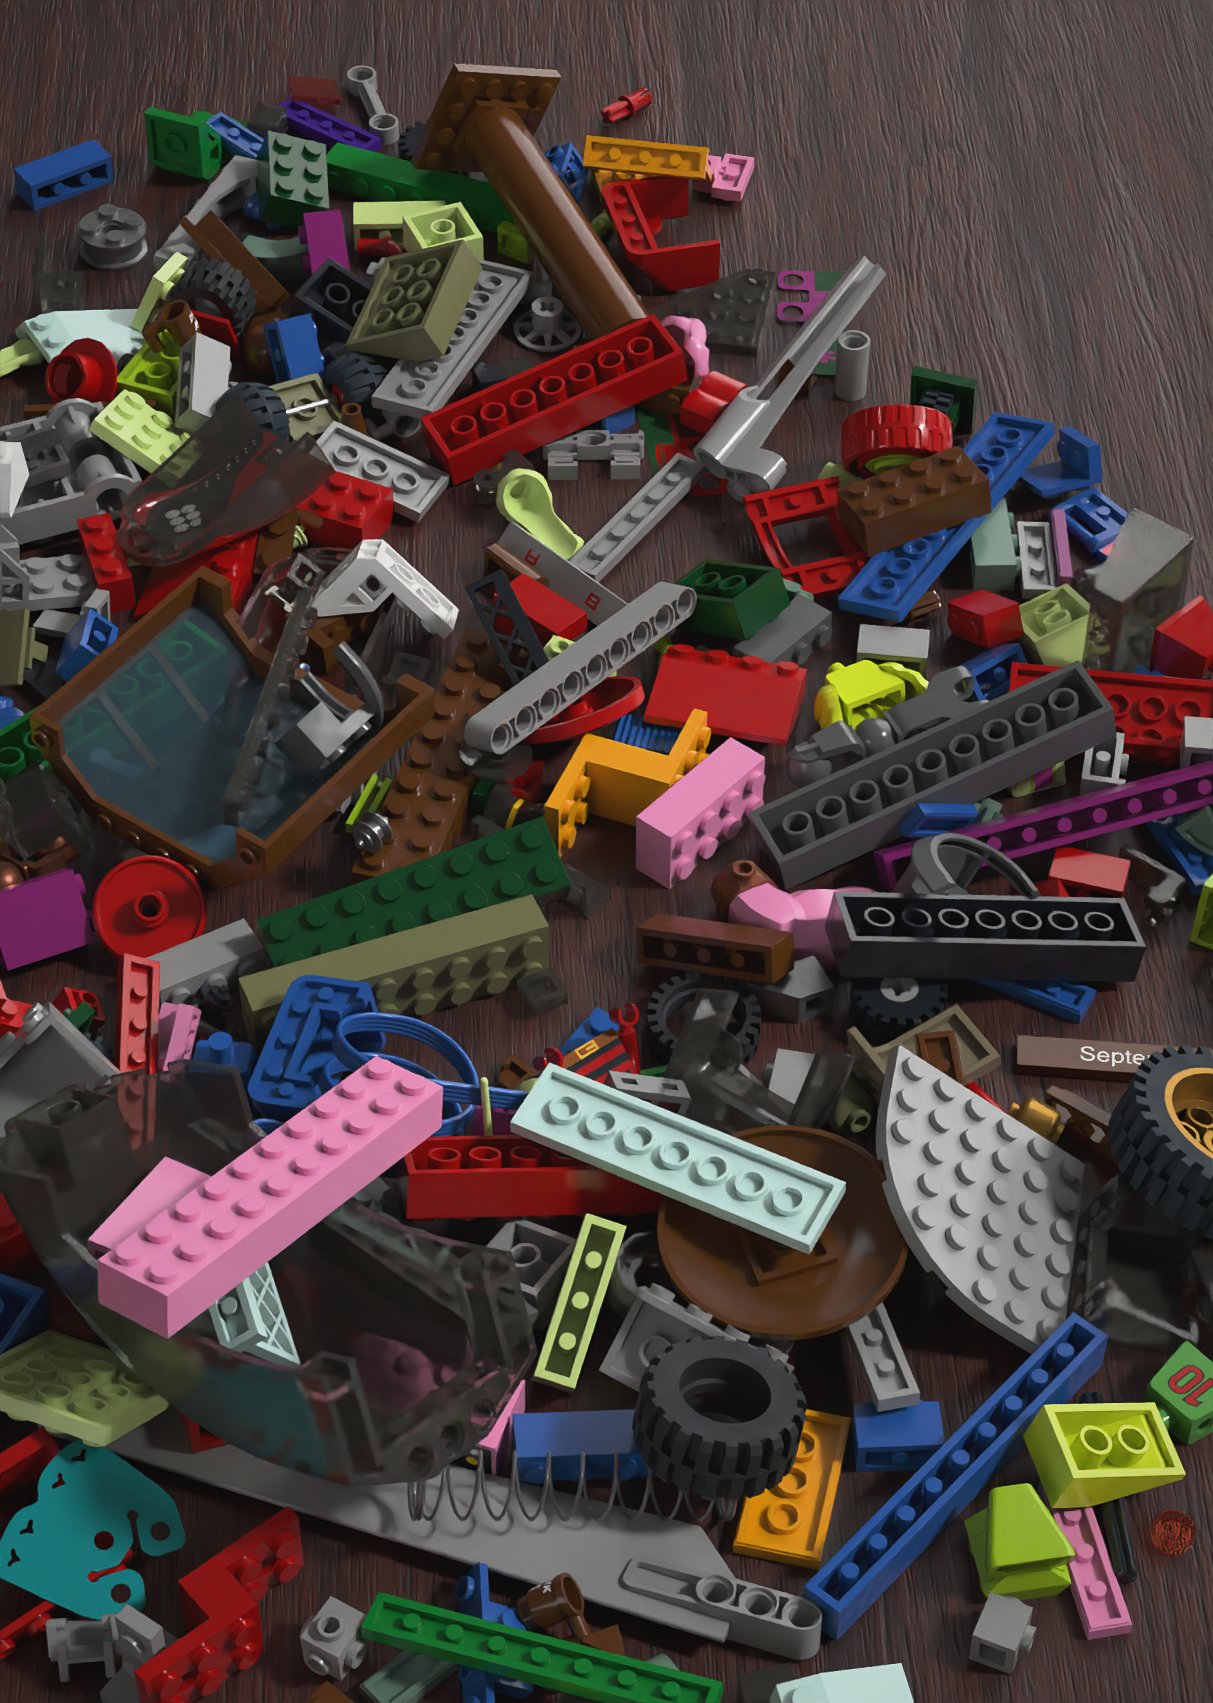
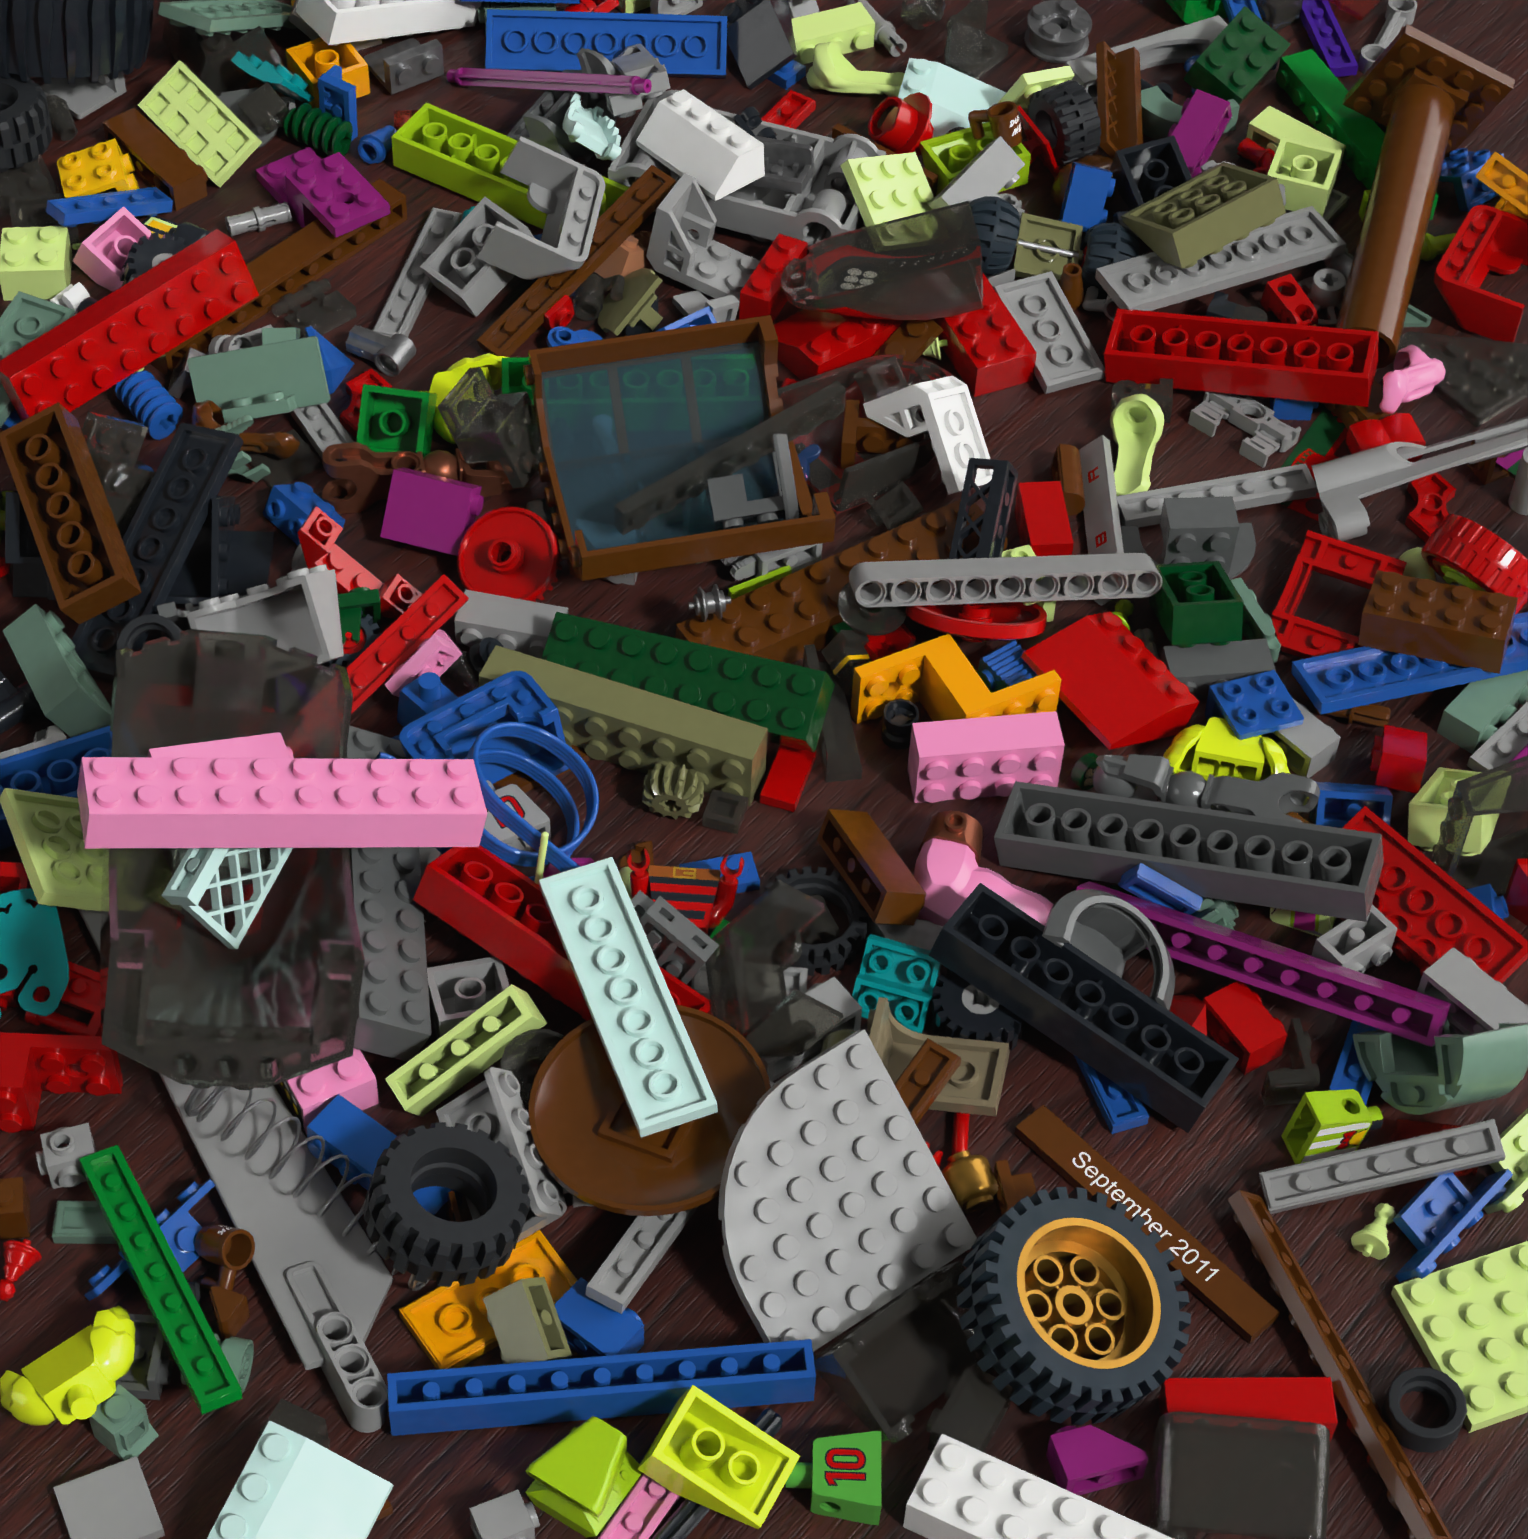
camera: 40 degrees right, 5 degrees up
(197, 1501) = (80, 993): none -> red plate
(491, 1000) = (673, 790): none -> olive gear
(531, 343) = (1290, 304): none -> red leg
(565, 941) = (787, 778): none -> red tile
(600, 835) = (897, 723): none -> black wheel
(670, 545) = (1200, 532): none -> dark grey piece
(775, 776) = (1083, 771): none -> dark green tile
(798, 438) = (1430, 499): none -> red tile
(818, 1016) = (900, 974): none -> teal slope
(846, 646) = (1253, 705): none -> blue bracket
(856, 1471) = (526, 1322): none -> olive brick

